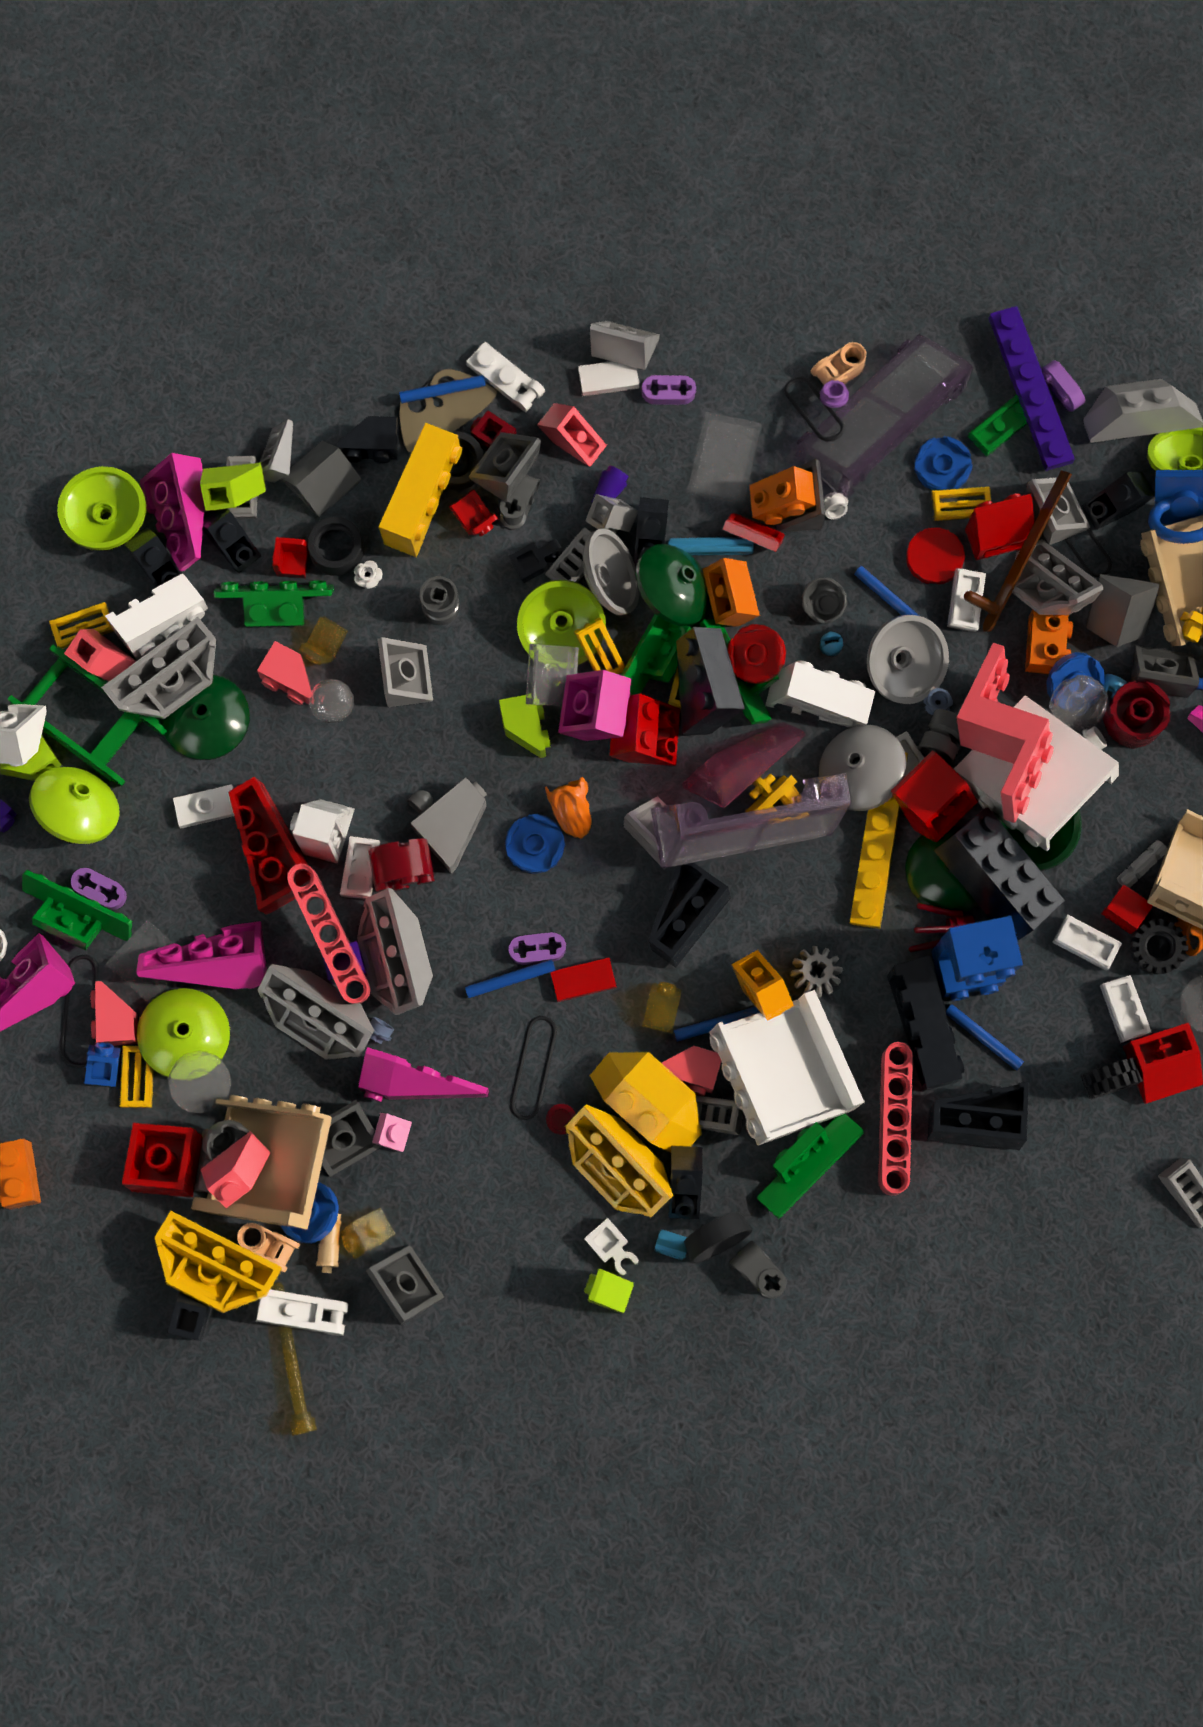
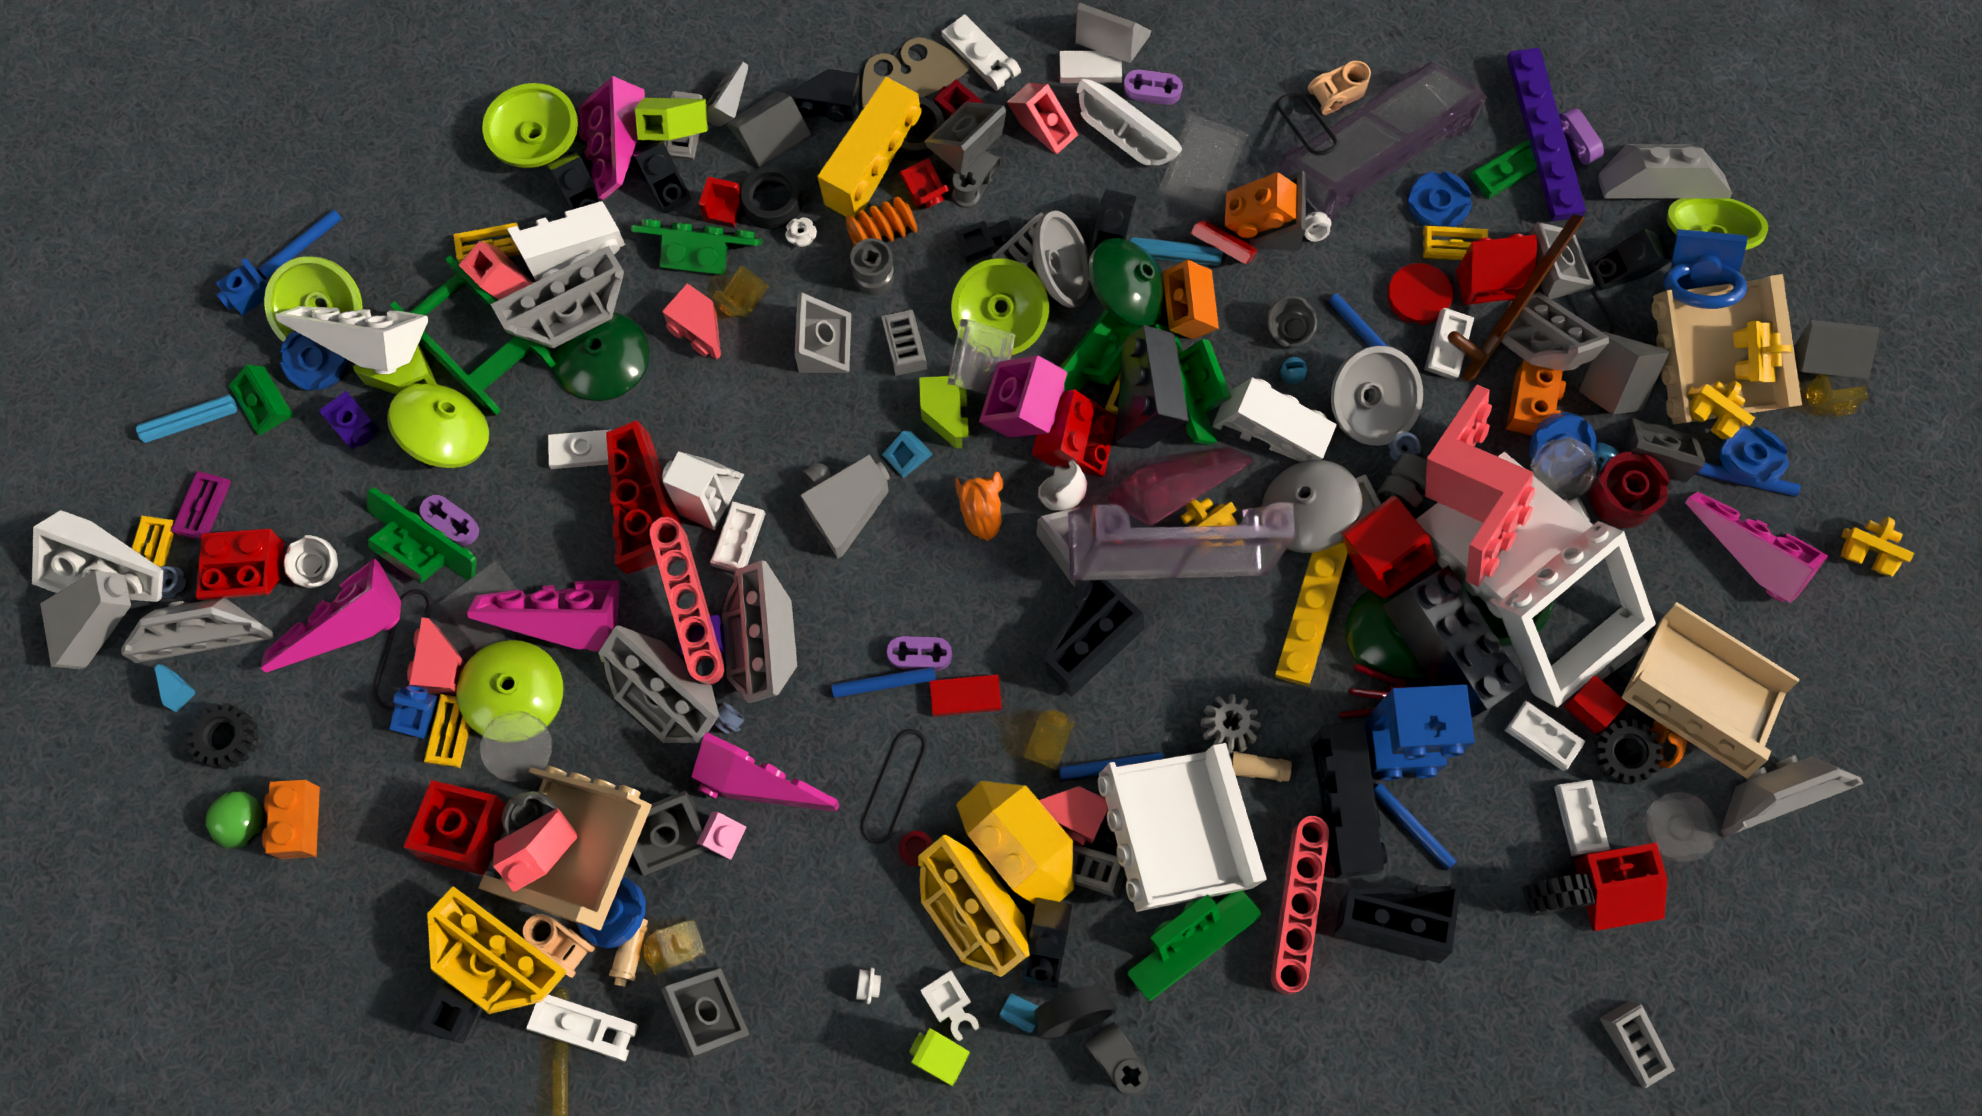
camera: 10 degrees right, 5 degrees down
(331, 701) = (737, 355): clear hair -> none
(401, 864) = (782, 537): dark red brick -> none
(440, 557) = (881, 223): none -> orange piece
(442, 389) = (912, 55): blue bar -> none
(486, 686) = (909, 363): none -> light grey slope
(497, 769) = (906, 453): none -> dark azure slope
(538, 853) = (934, 550): blue tile -> none
(538, 1240) = (868, 985): none -> white plate
(589, 629) = (1029, 316): yellow tile -> none
(611, 482) = (1074, 176): dark purple cone -> none
(611, 514) = (1072, 201): light grey brick -> none
(642, 782) = (1064, 488): none -> white hair
(650, 431) = (1126, 125): none -> white brick
(756, 653) = (1210, 366): red tile -> none
(762, 985) = (1167, 729): light orange brick -> none
(834, 394) = (1330, 109): medium lavender plate -> none
(847, 1005) = (1260, 767): none -> tan piece
(1125, 858) = (1603, 644): none -> white window

